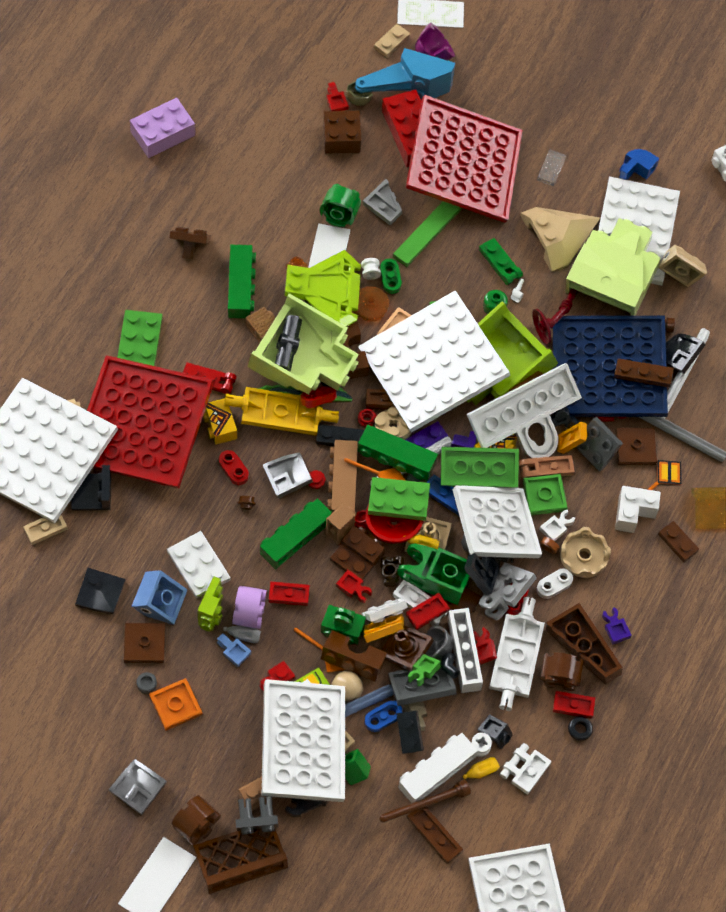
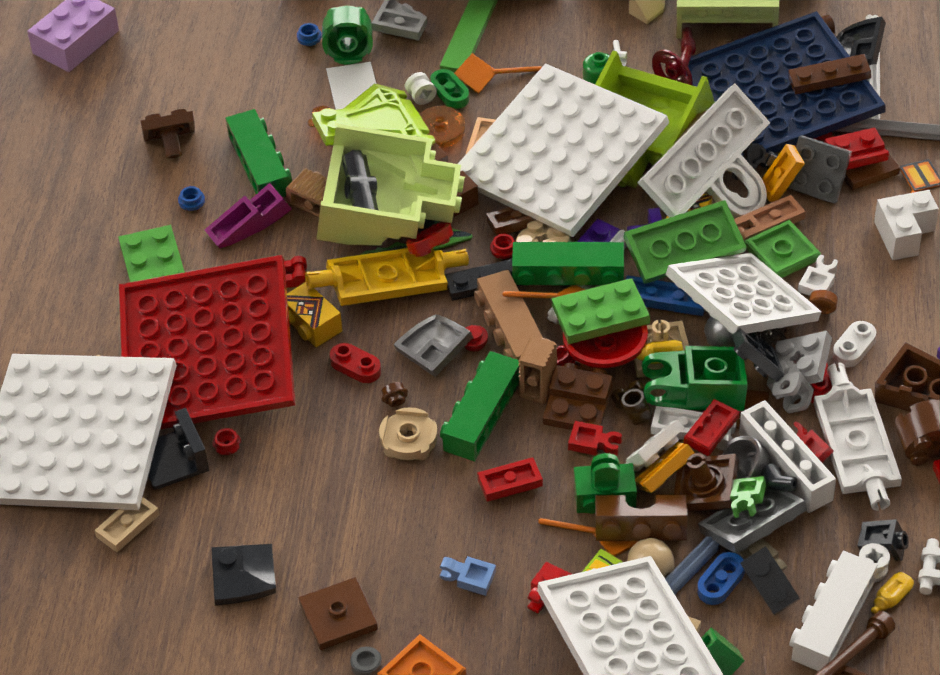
camera: 15 degrees left, 15 degrees down
(129, 489) = (226, 441): none -> red plate
(159, 597) = (331, 546): medium blue slope -> none
(184, 293) = (191, 198): none -> blue plate
(197, 563) = (366, 491): white plate -> none
(210, 610) = (413, 528): lime plate -> none
(214, 328) = (248, 217): none -> magenta slope
(242, 545) = (411, 447): none -> tan plate
(244, 633) = (478, 548): light grey piece -> none
(249, 607) = (466, 509): lavender brick -> none
(317, 188) = (309, 34): none -> blue plate
(415, 270) = (477, 73): none -> orange piece
(500, 261) = (578, 31): green plate -> none
(585, 541) = (879, 281): tan plate -> none
(634, 437) = (865, 146): none -> red plate

